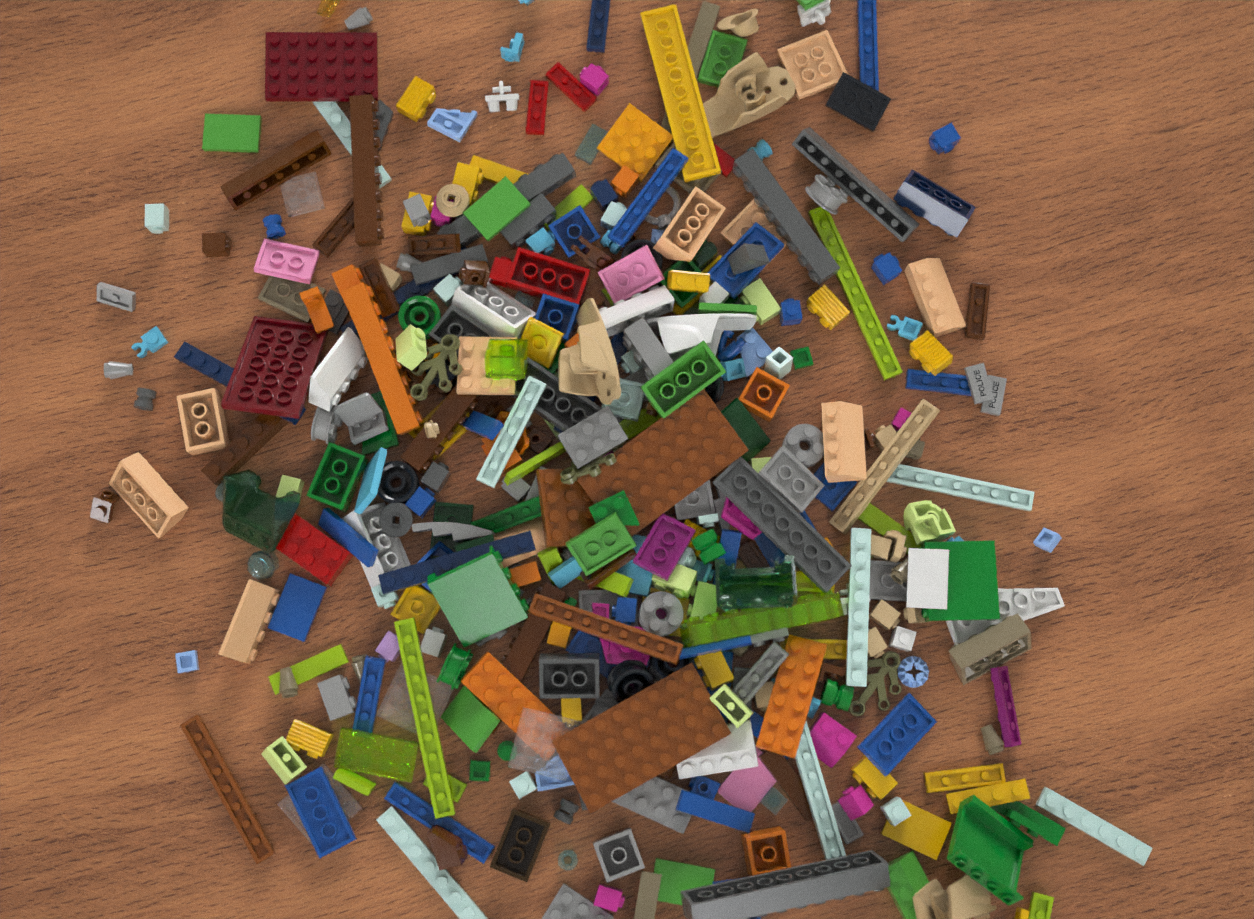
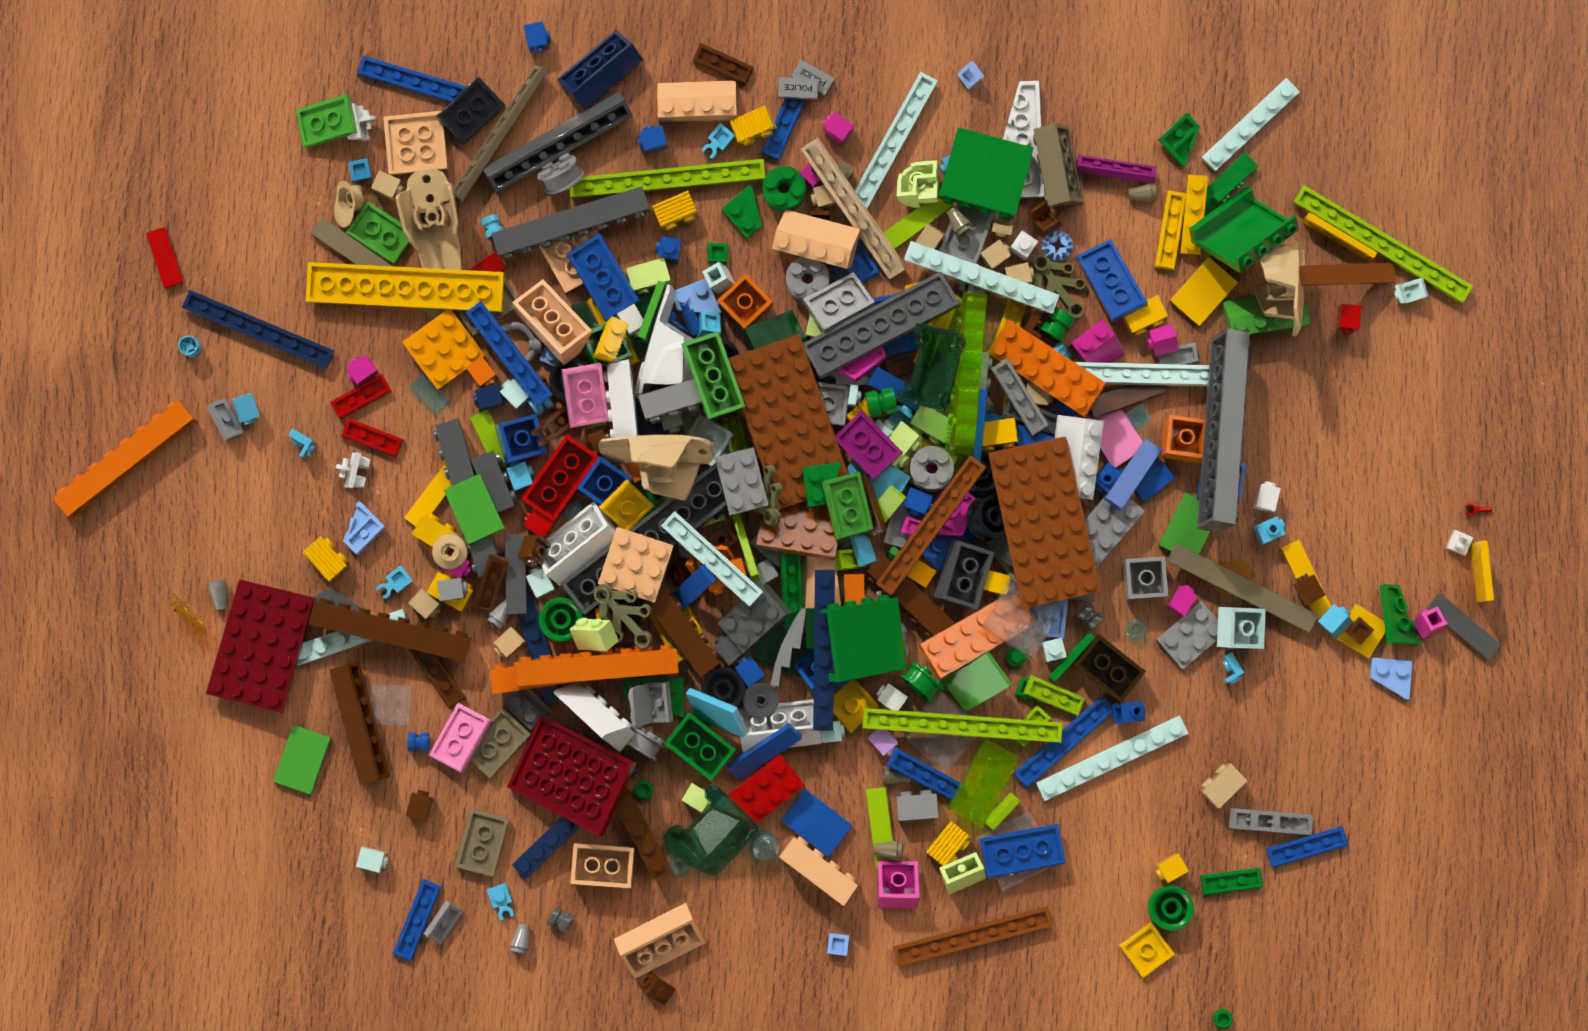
camera: 70 degrees left, 5 degrees up
(113, 274) = (417, 920): none -> blue tile
(198, 309) = (482, 842): none -> dark tan plate
(257, 701) = (897, 884): none -> dark pink slope
(285, 439) = (644, 789): none -> green plate
(317, 309) = (524, 719): orange bracket -> none
(382, 291) = (511, 651): reddish brown tile -> none
(397, 194) = (425, 604): none -> tan brick
(413, 165) = (396, 580): none -> medium azure plate
(431, 429) = (683, 638): tan plate -> none
(447, 848) = (1091, 738): reddish brown slope -> none
(466, 493) = (751, 624): none -> dark grey brick
(479, 798) = (1054, 695): none -> lime tile
(483, 877) = (1129, 712): none -> blue brick
(506, 359) = (638, 541): clear neon green slope -> none
(521, 804) = (1072, 655): none -> green tile
(717, 834) = (1154, 480): none -> blue tile
(731, 706) = (1040, 427): yellowish green brick -> none
(747, 258) = (604, 273): dark grey slope -> none
(767, 50) = (387, 185): none -> tan brick
(772, 25) = (360, 170): none -> dark azure plate
(847, 132) = (499, 132): none -> dark tan tile
(847, 370) = (744, 212): none -> green wing
(889, 391) = (784, 176): none -> green wheel
(895, 811) = (1182, 305): light aqua brick -> none
(898, 549) = (938, 221): tan bracket -> none
(927, 578) = (975, 203): white tile -> none
(934, 651) = (1044, 219): none -> reddish brown bracket
(955, 431) = (837, 127): none -> dark pink brick
(1056, 760) = (1180, 138): none -> green wing

